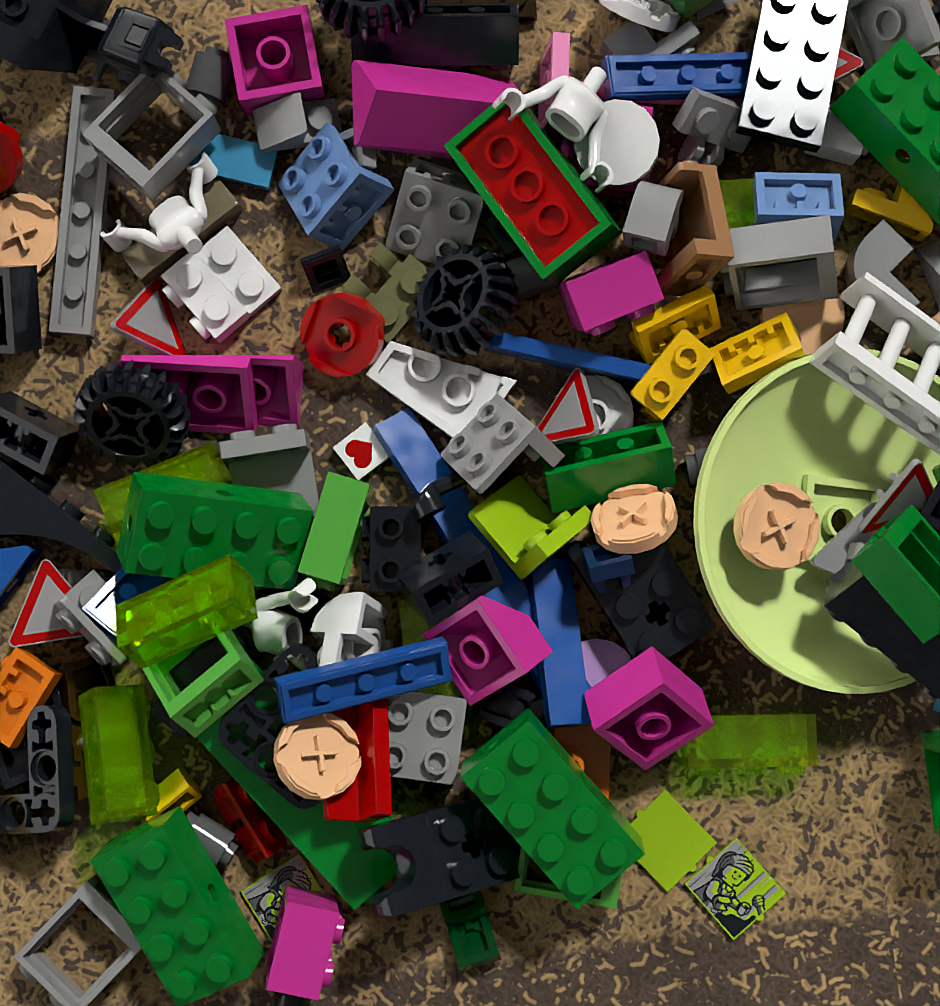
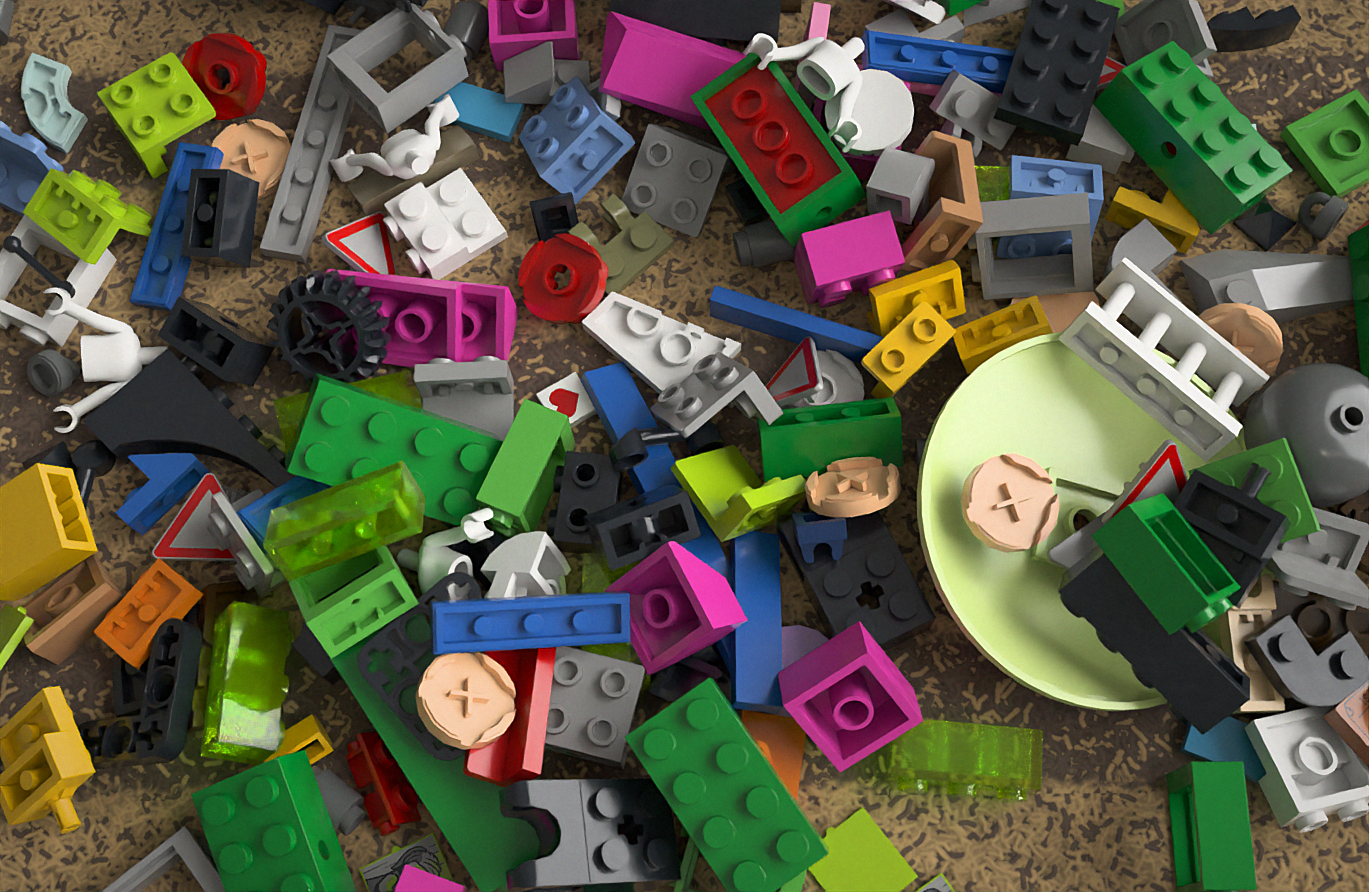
camera: 10 degrees right, 15 degrees down
(464, 301) = (694, 255): black gear -> none

